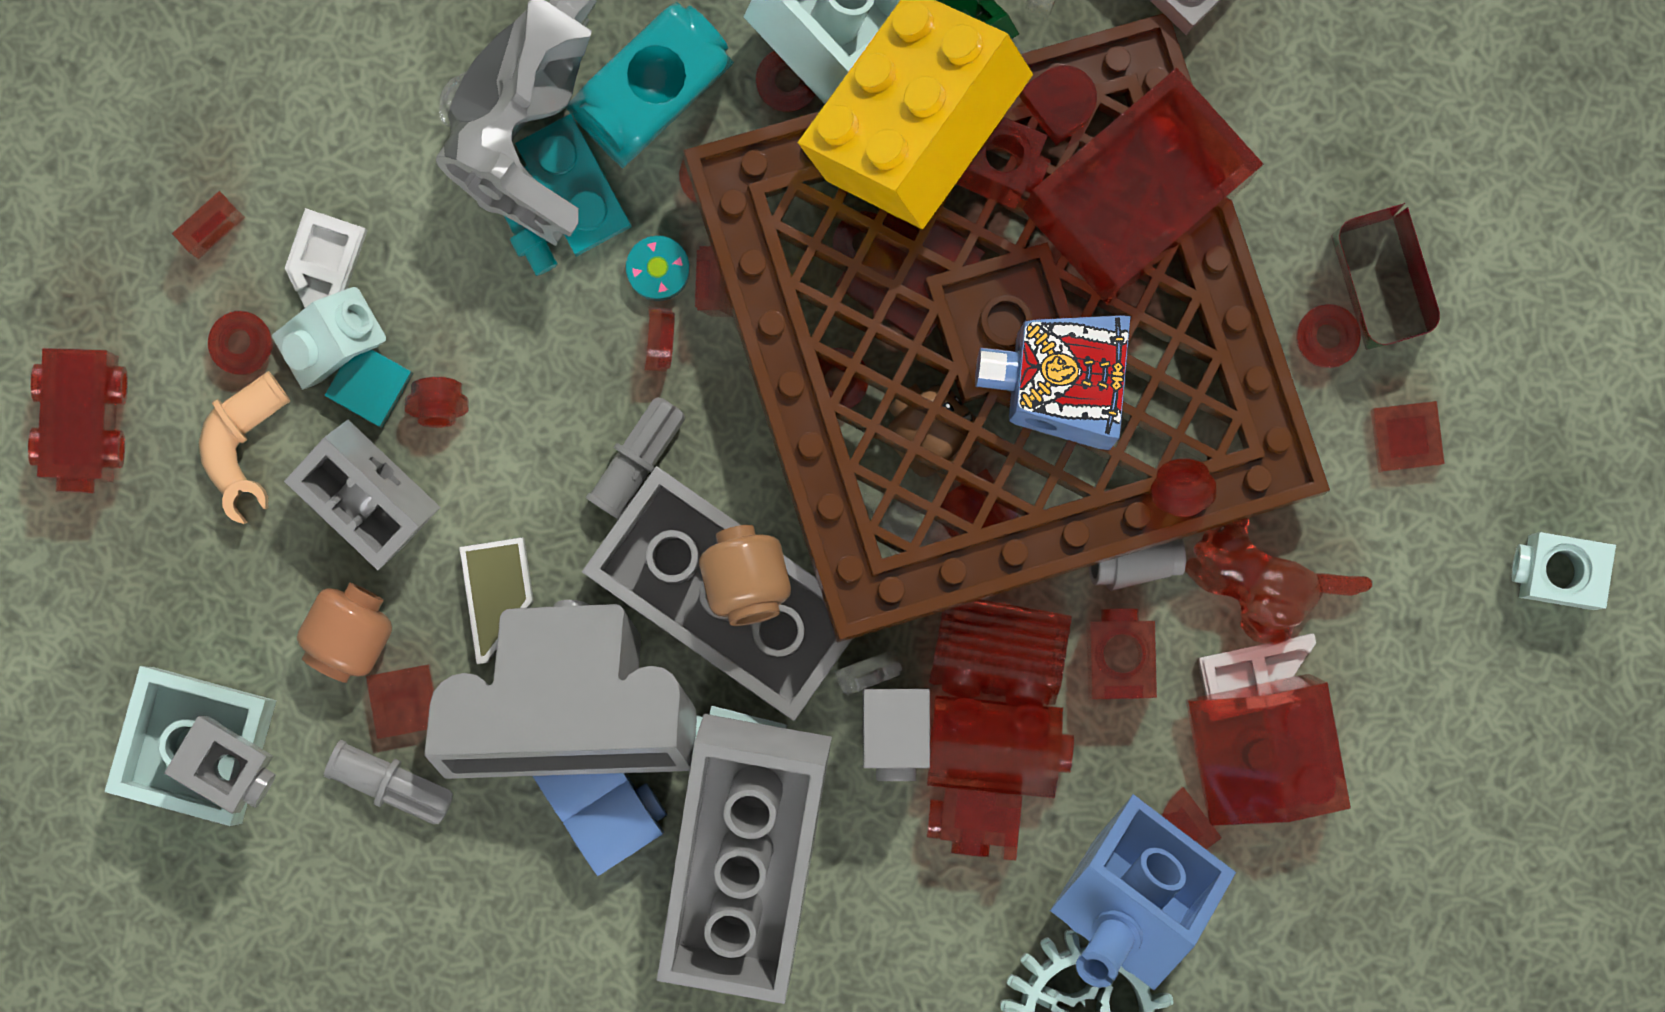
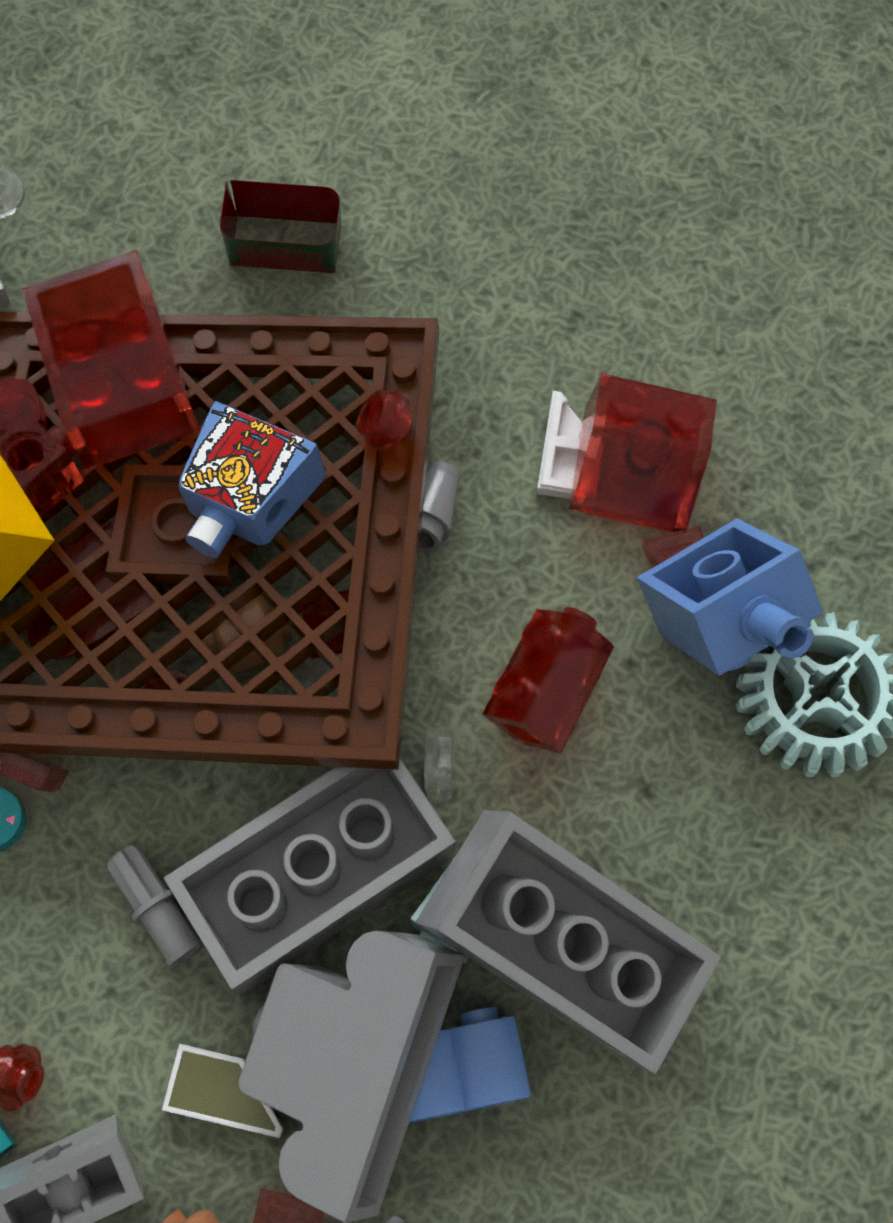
camera: 65 degrees left, 15 degrees down
(659, 339) = (54, 840): clear red tile -> none
(745, 576) = (299, 827): medium nougat head -> none
(896, 732) = (501, 756): light grey brick -> none
(976, 821) = (610, 722): clear red brick -> none
(1001, 652) = (465, 643): clear red brick -> none
(1107, 683) = (520, 570): clear red brick -> none
(1270, 590) = (499, 408): clear red animal -> none
(1342, 321) = (307, 277): clear red plate -> none
(1407, 436) = (419, 264): clear red tile -> none
(1591, 565) = (578, 164): light aqua brick -> none

